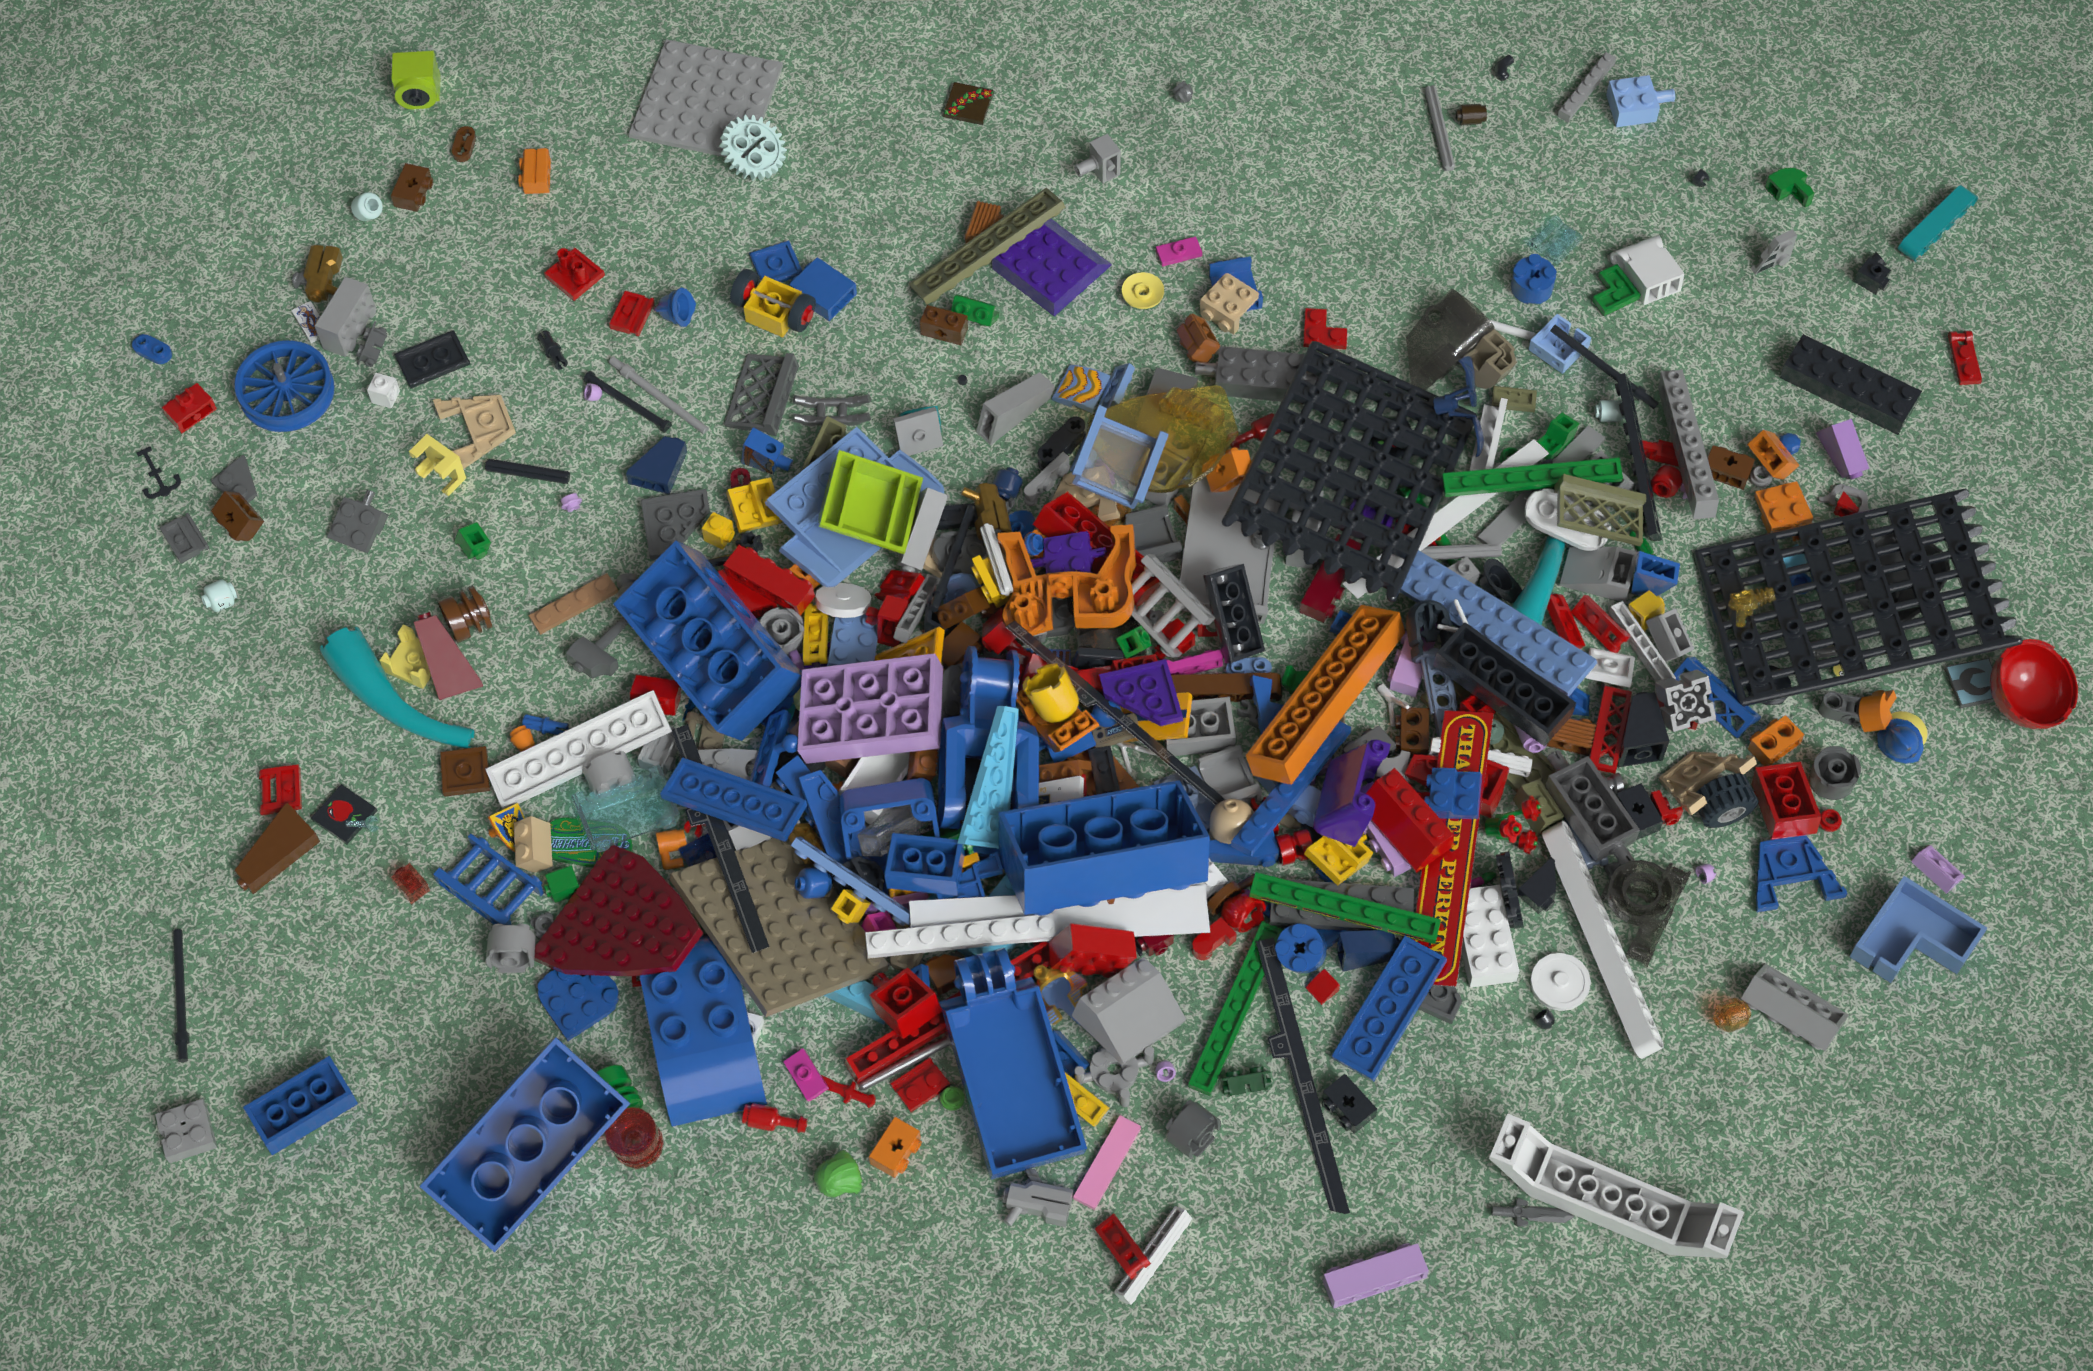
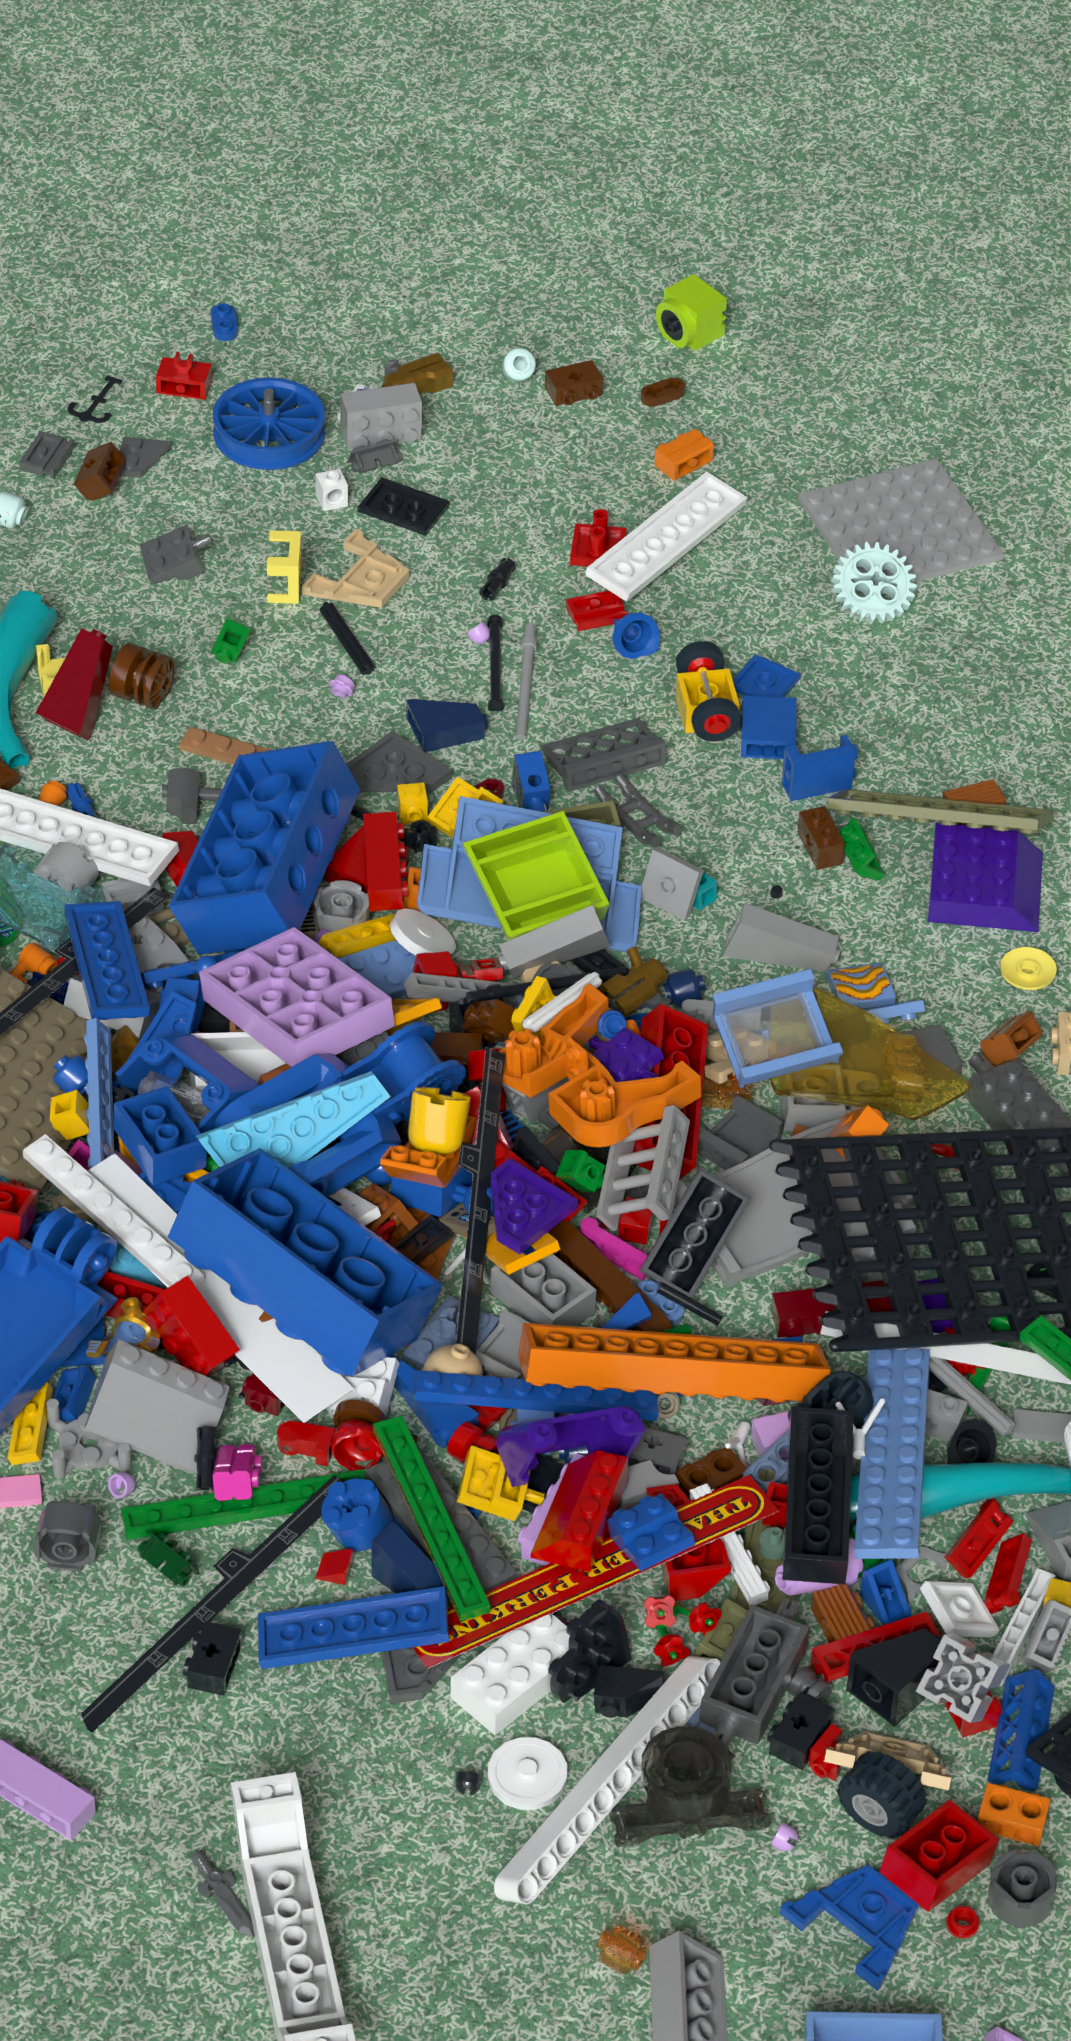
camera: 50 degrees right, 15 degrees down
(605, 231) = (666, 536): none -> white plate
(885, 300) = (818, 771): none -> blue panel
(1187, 1007) = (205, 1457): none -> black pin
(1215, 997) = (236, 1472): none -> dark pink brick
(1270, 652) = (689, 1303): none -> black piece

